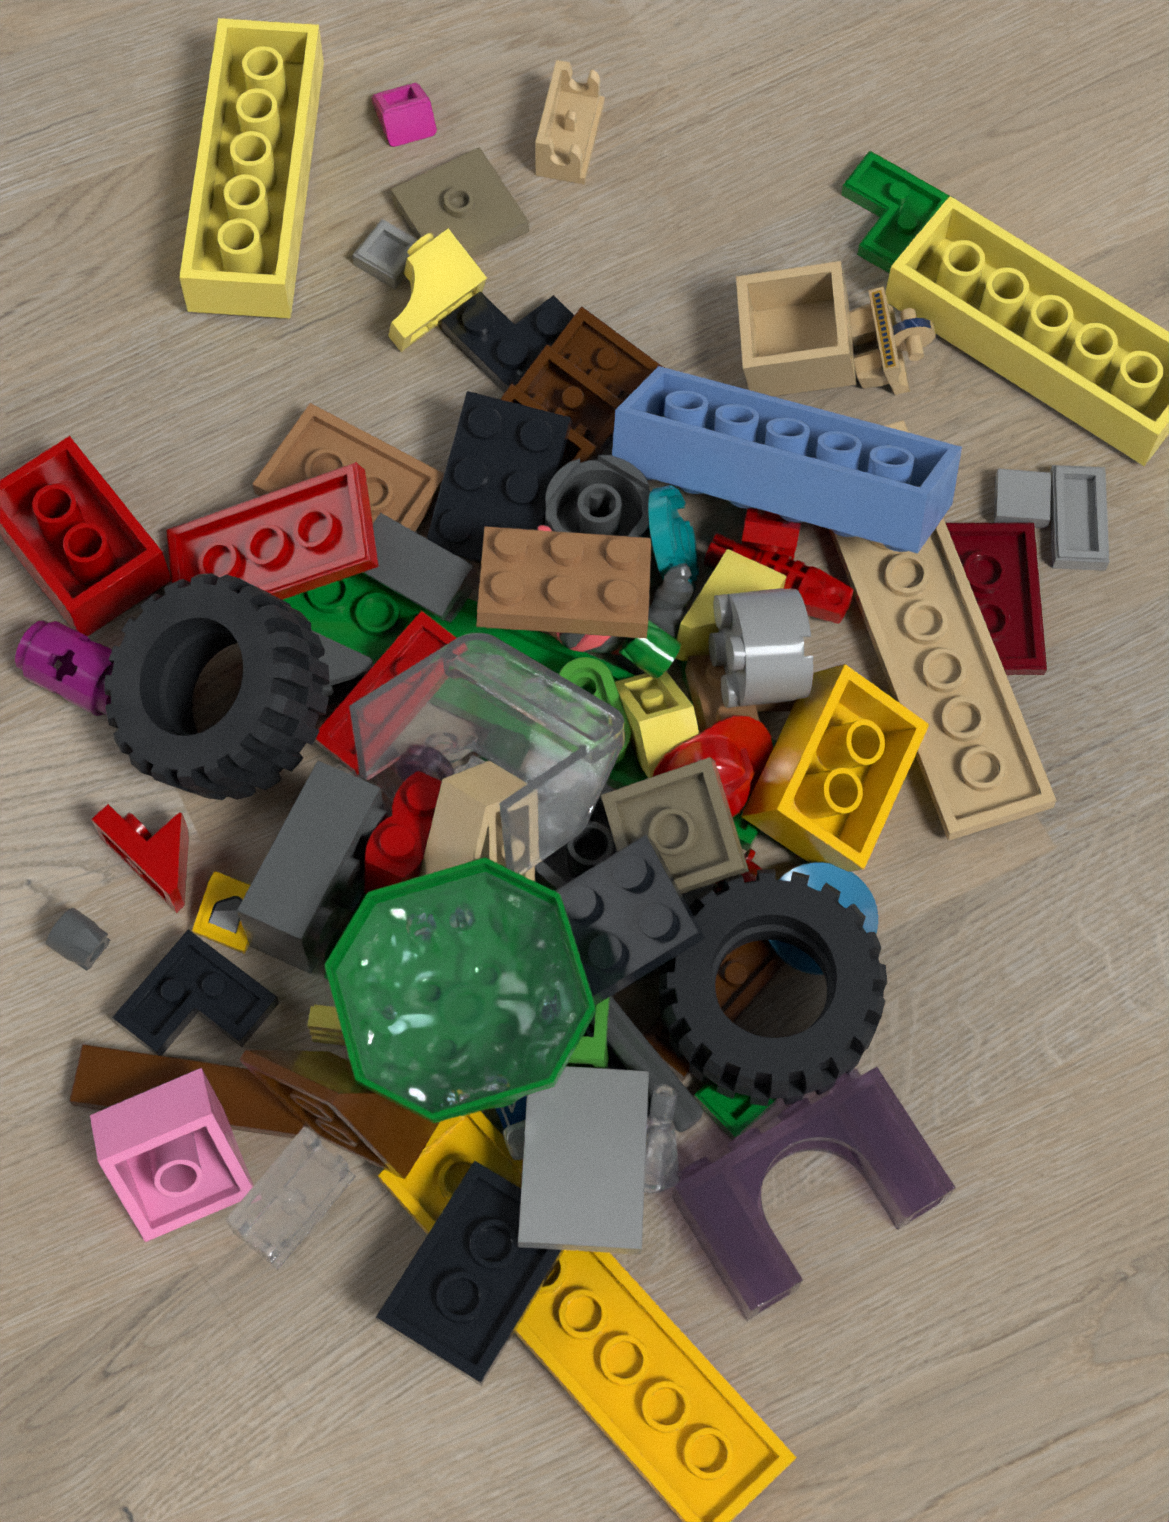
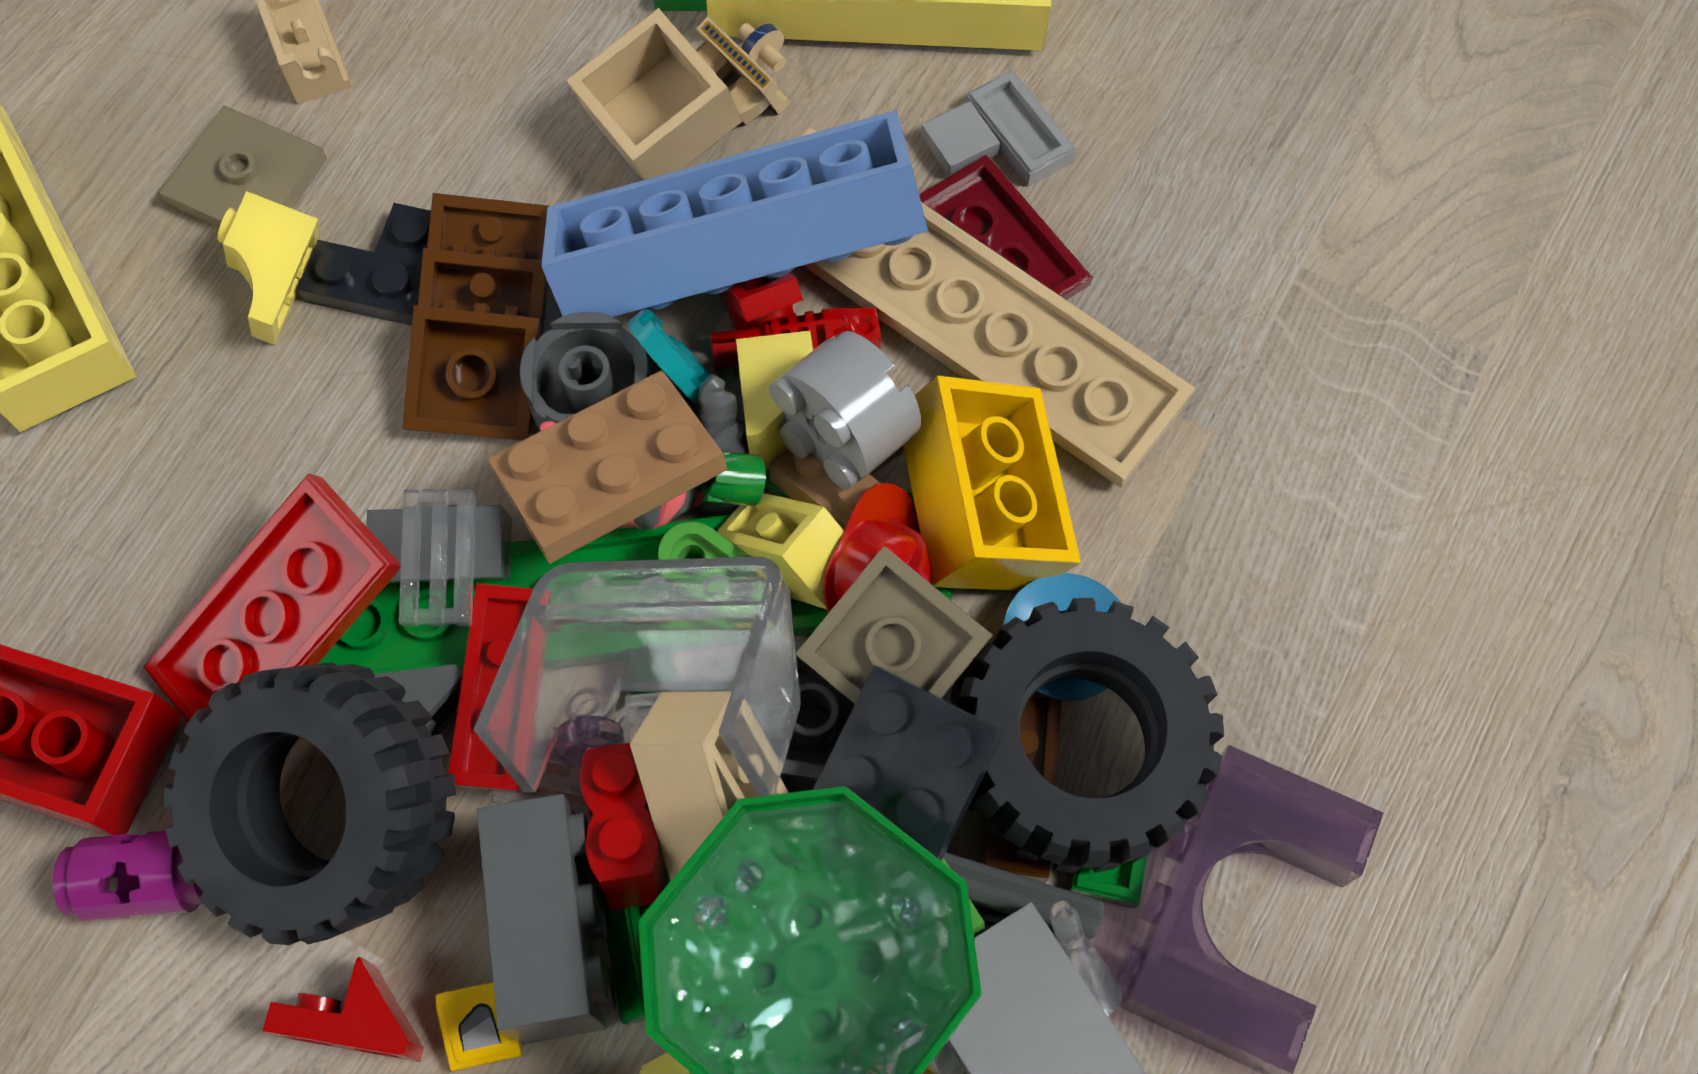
camera: 35 degrees left, 0 degrees up
(322, 442) = (258, 478): medium nougat plate -> none
(381, 614) = (464, 557): none -> clear tile
(384, 253) = (194, 259): light grey tile -> none
(405, 114) = (125, 116): dark pink slope -> none
(496, 472) = (457, 398): black plate -> none

